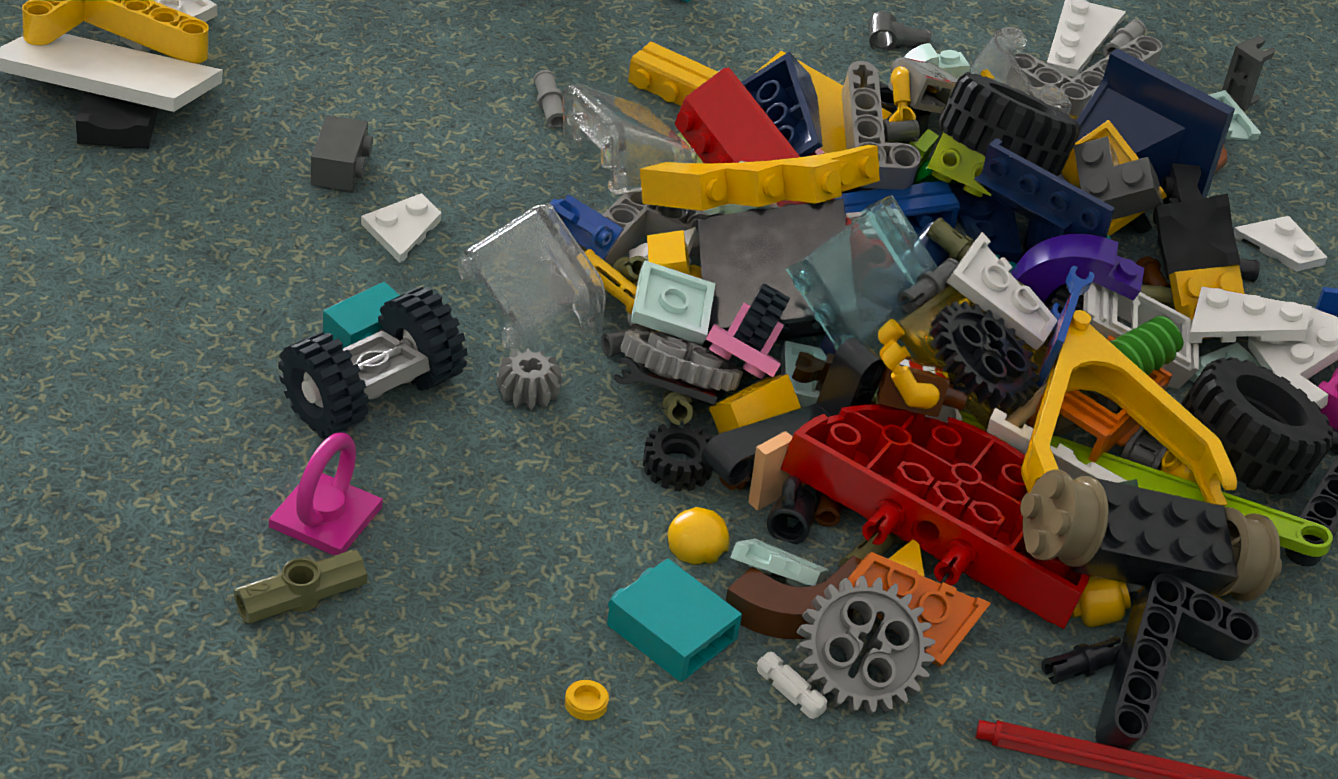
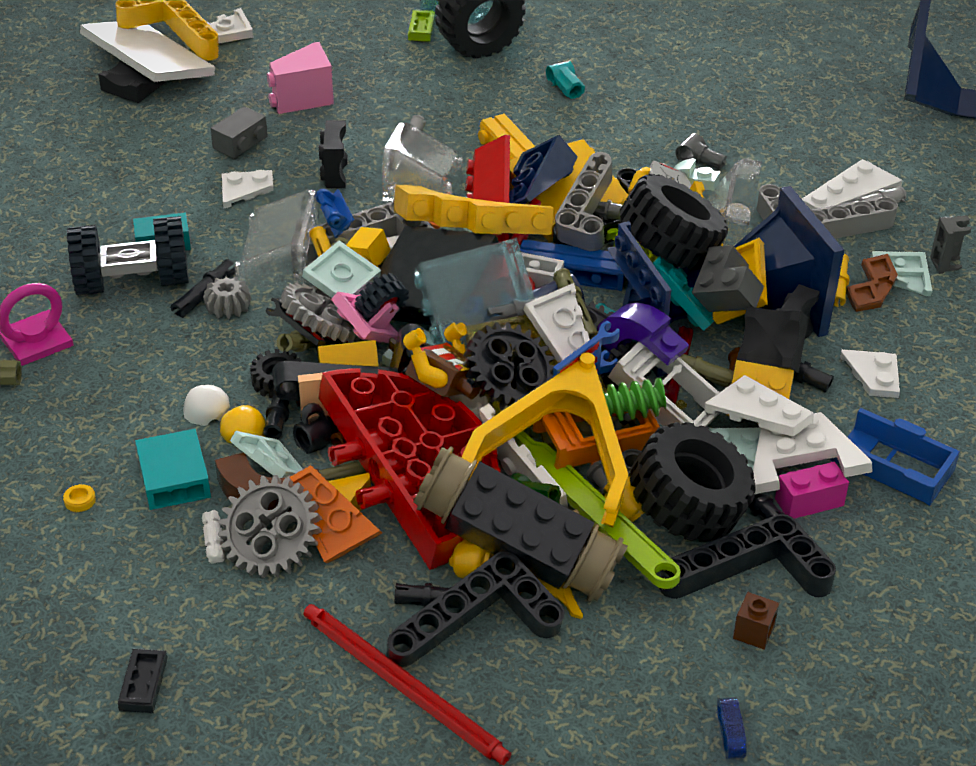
camera: 35 degrees right, 0 degrees up
(366, 59) = (301, 80): none -> bright pink slope
(485, 367) = (195, 295): none -> black pin
(498, 150) = (333, 154): none -> black brick
(629, 526) = (205, 404): none -> white hair
(726, 505) = (276, 415): none -> black pin

